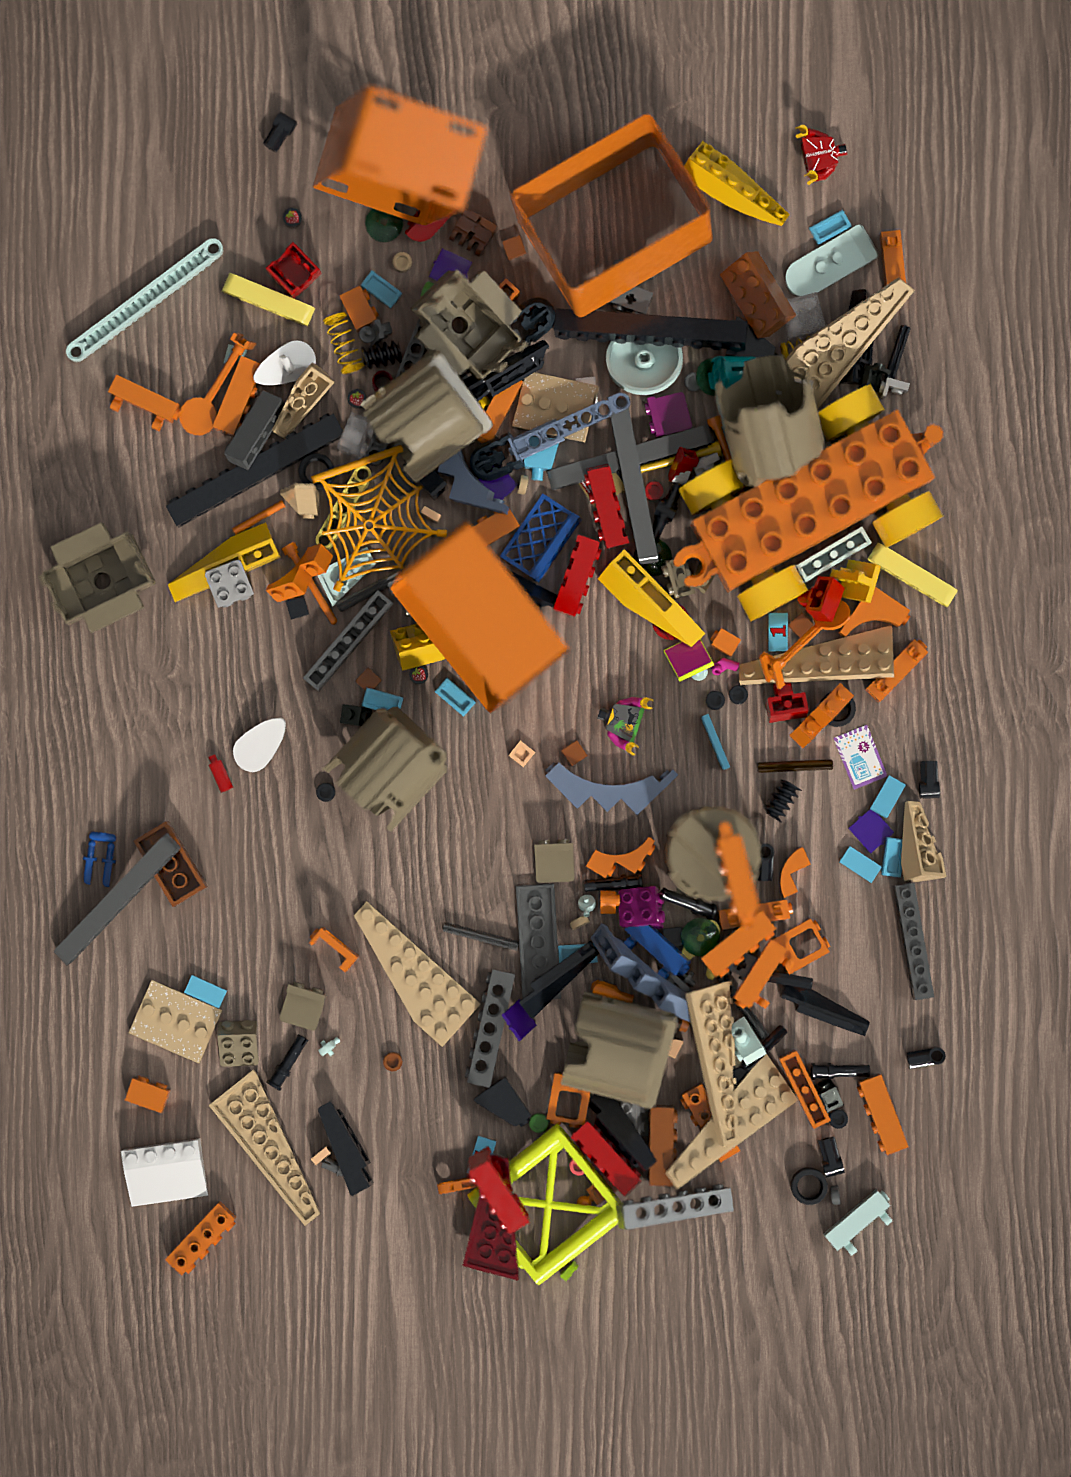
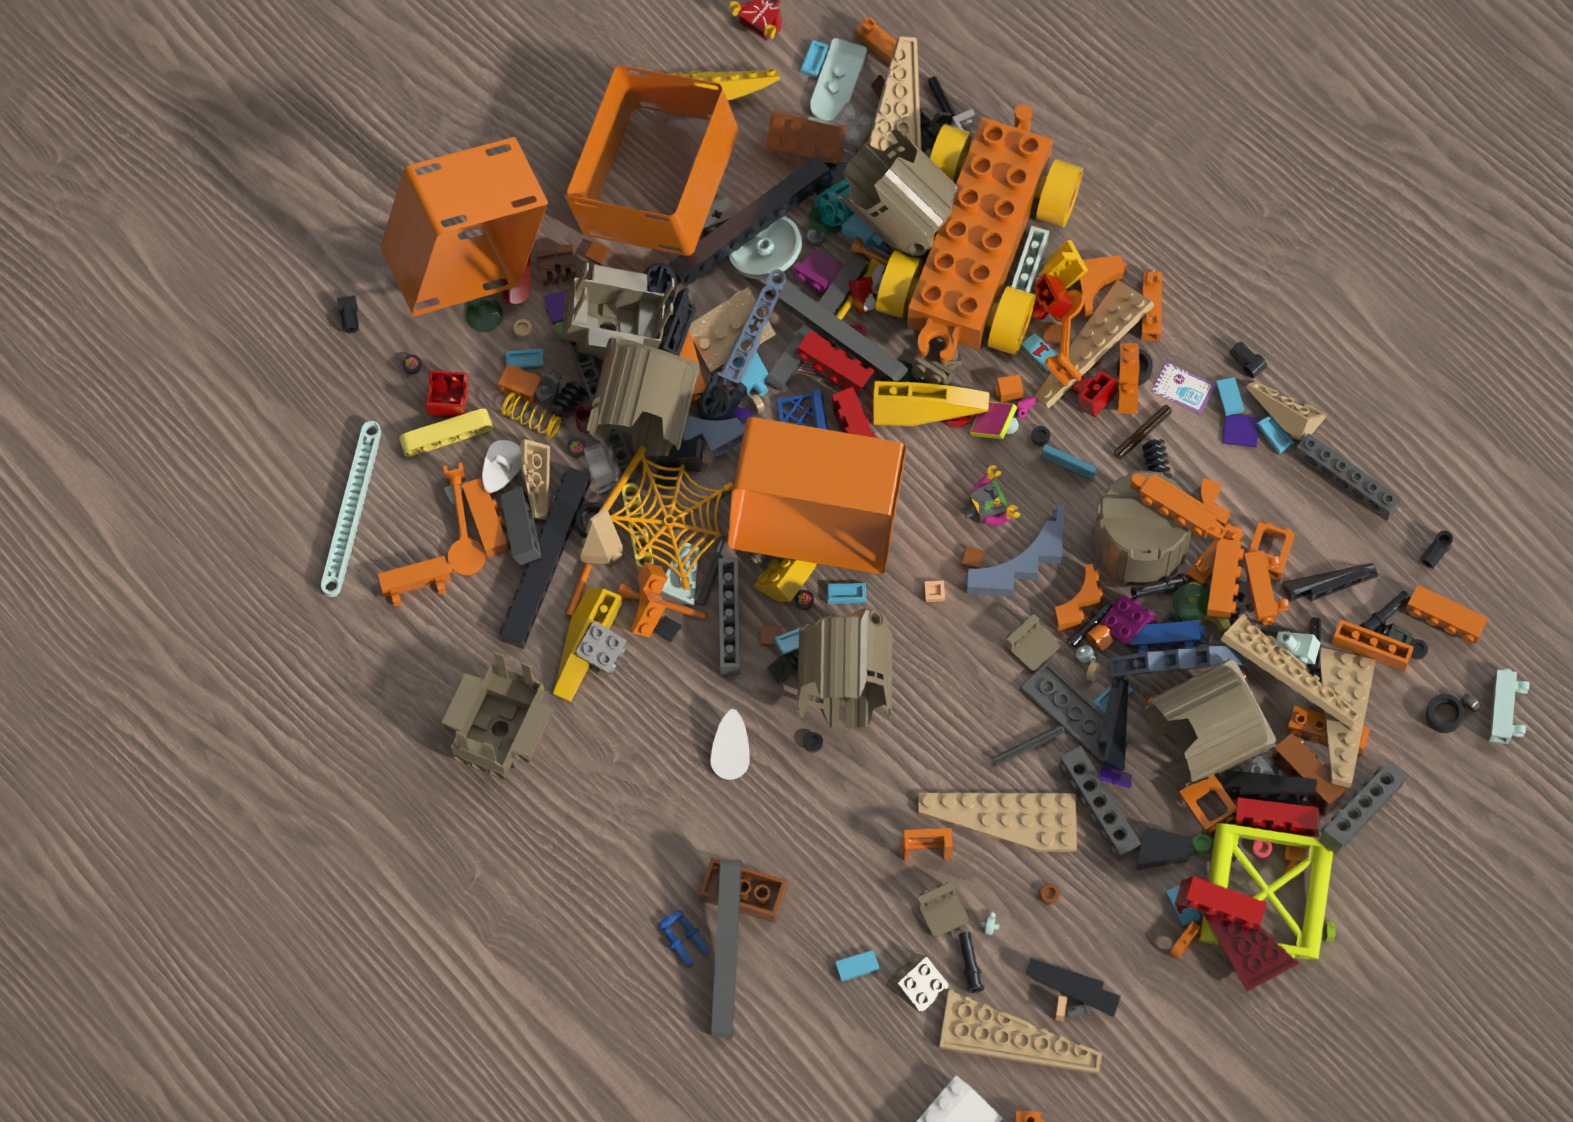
camera: 45 degrees left, 20 degrees down
(148, 1094) = (884, 1079): orange brick -> none
(175, 1021) = (855, 1008): tan plate -> none
(220, 774) = (720, 796): red cylinder -> none
(432, 515) = (708, 479): light nougat tile -> none
(666, 510) = (878, 333): black pin -> none
(738, 694) = (1053, 418): black tile -> none
(791, 980) = (1288, 577): black axle -> none
(831, 1162) = (1443, 681): black piece -> none
(860, 864) = (1256, 459): medium azure tile -> none
(912, 575) = (1101, 233): light yellow beam -> none

